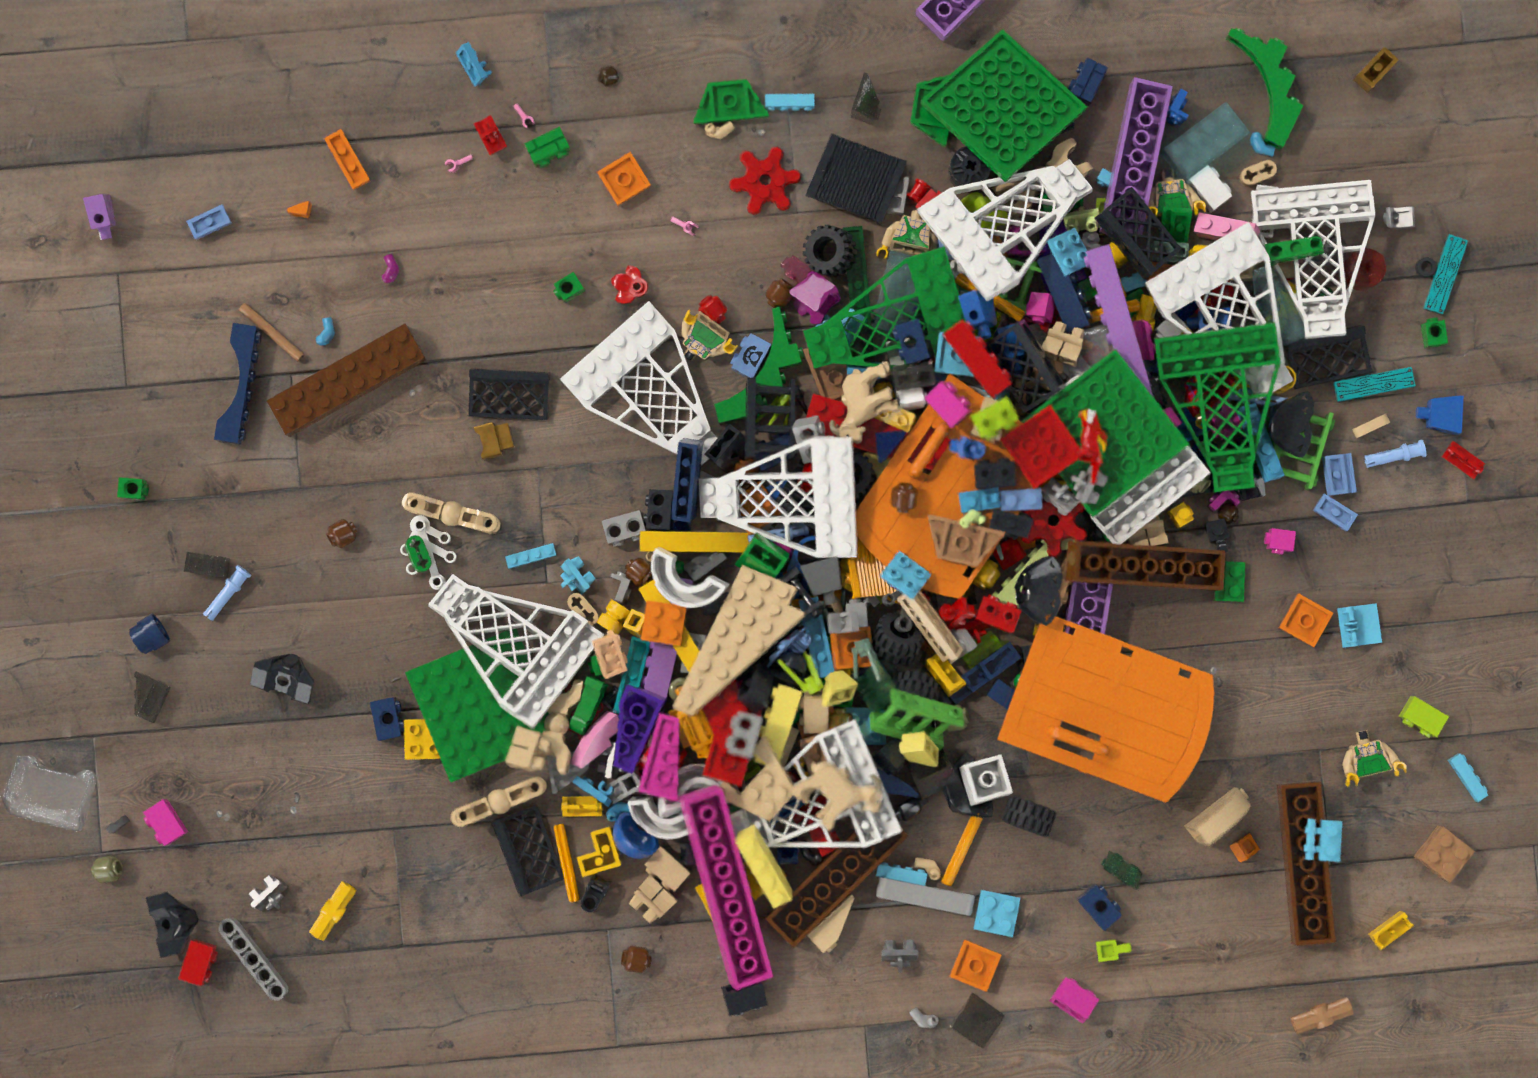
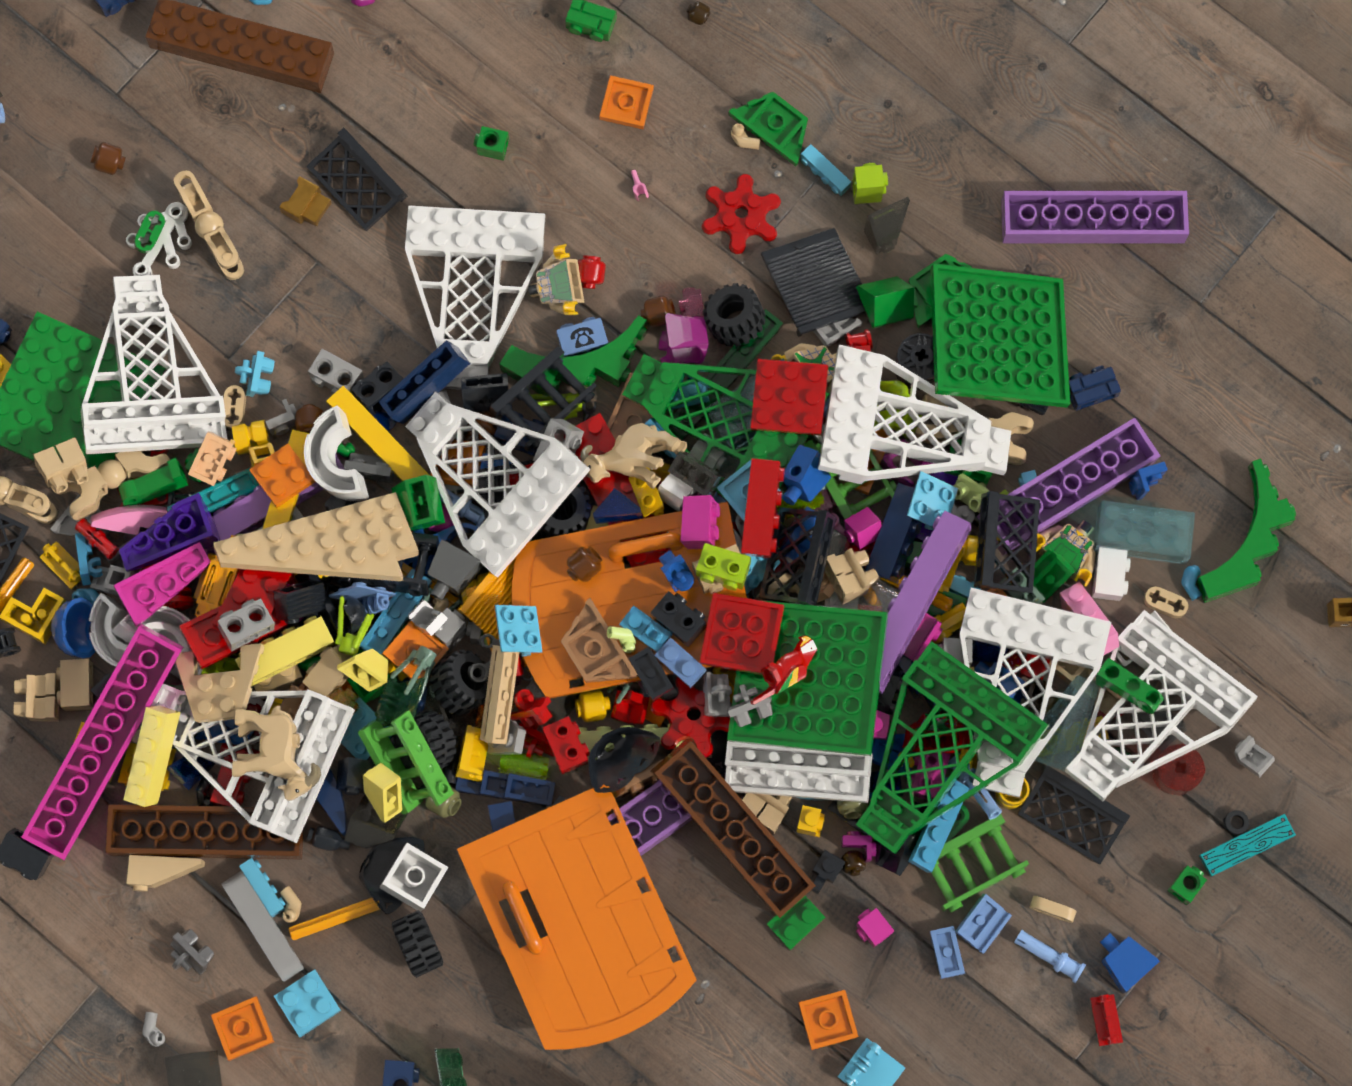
camera: 45 degrees right, 10 degrees down
(531, 556) = (237, 324): medium azure piece -> none
(590, 771) = (106, 548): none -> red pin
(626, 285) = (541, 187): red plate -> none
(827, 85) = (869, 183): none -> lime brick
(910, 148) = (887, 301): none -> green slope
(915, 353) = (722, 458): dark blue brick -> none
(924, 272) = (789, 397): none -> red plate
(999, 302) = (831, 488): light orange axle -> none
(1289, 420) = (982, 833): black piece -> none
(1374, 384) = (1091, 877): teal tile -> none

